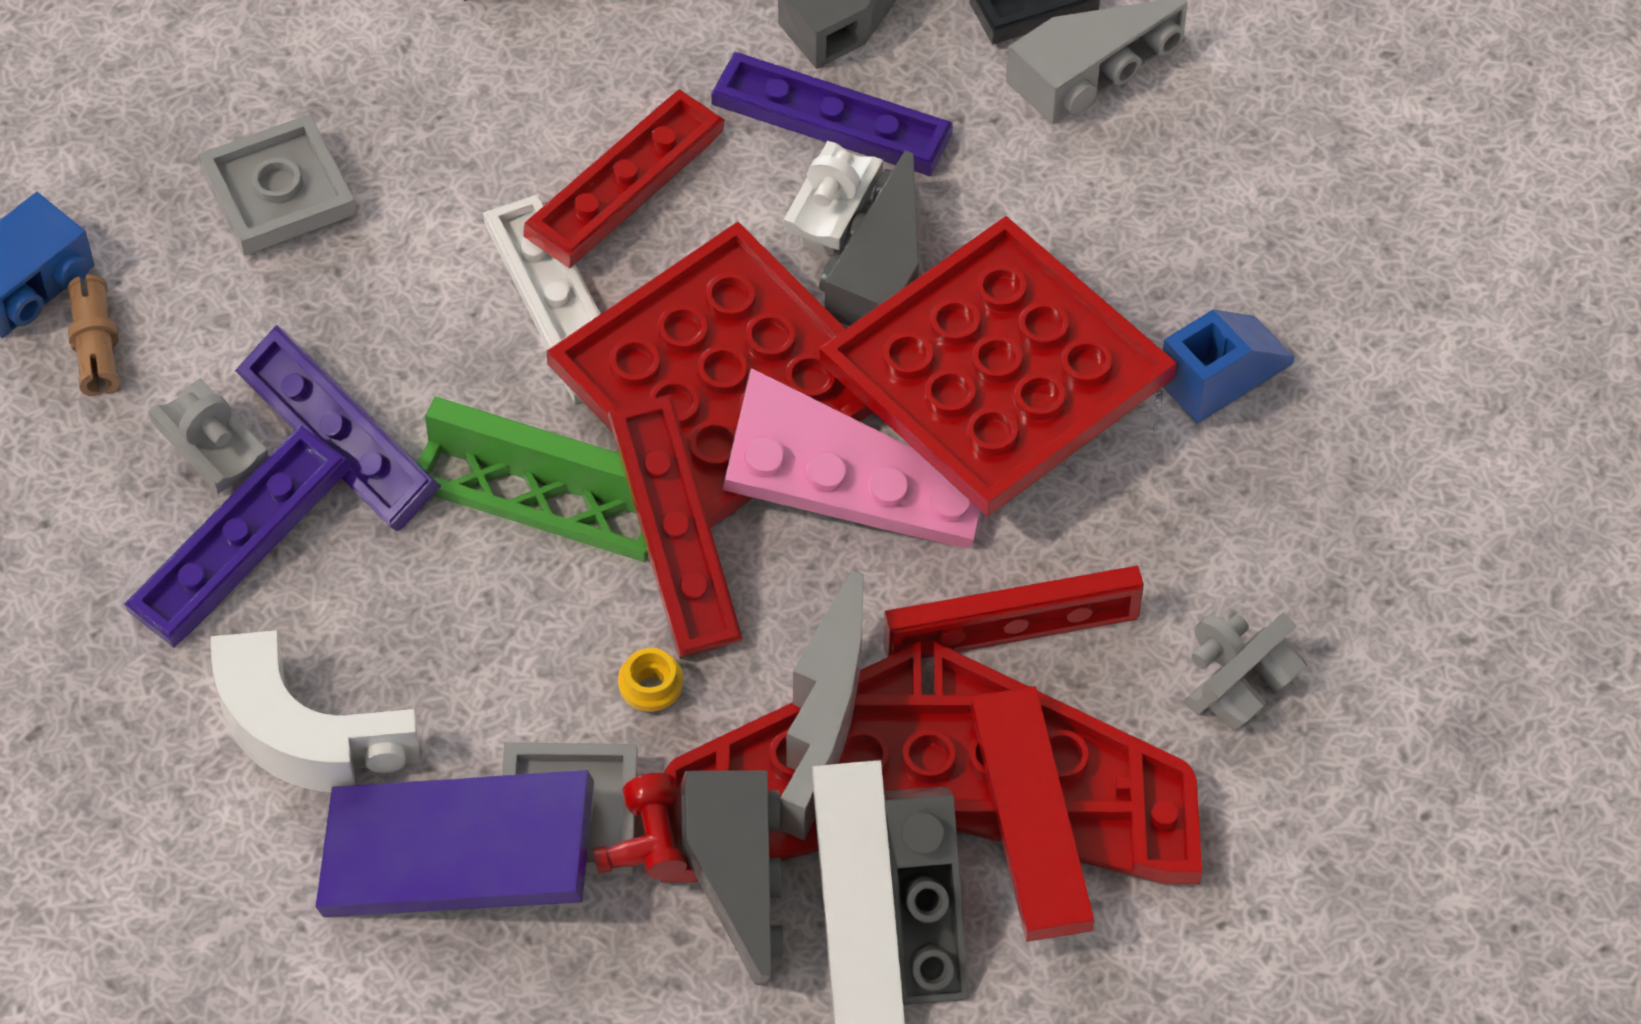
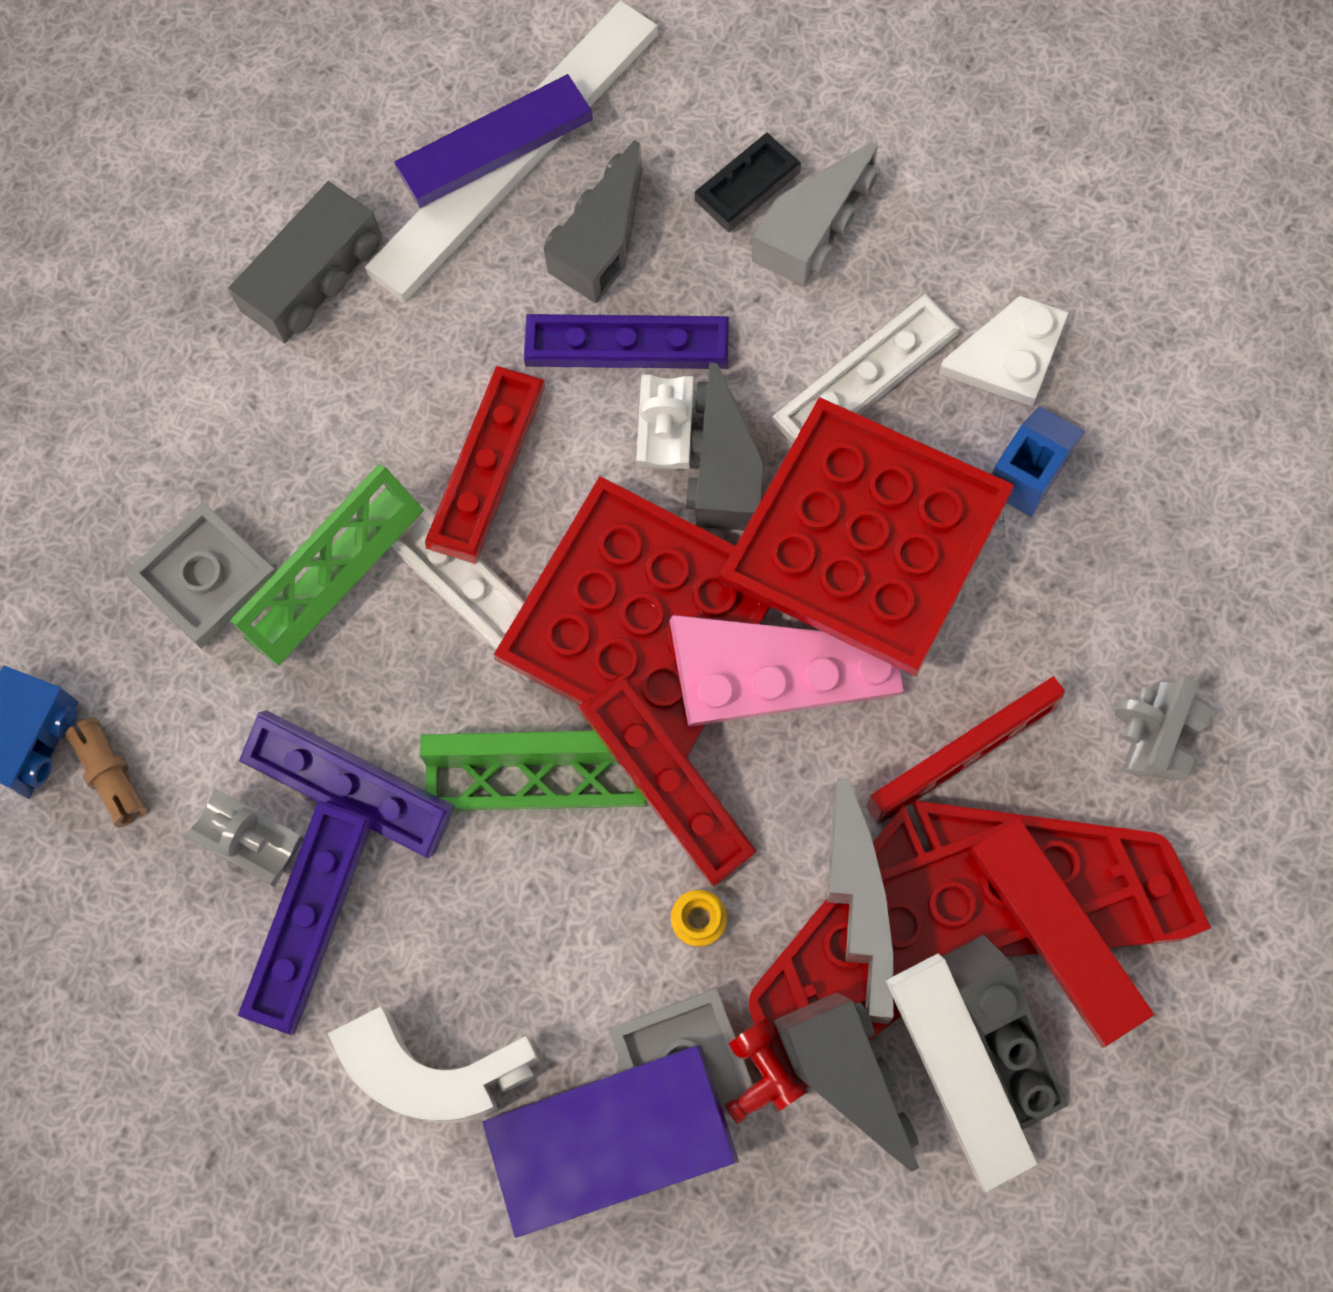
camera: 15 degrees left, 15 degrees up
(417, 222) = (332, 572): none -> bright green fence
(1107, 218) = (874, 365): none -> white tile
(1249, 256) = (1009, 351): none -> white wing

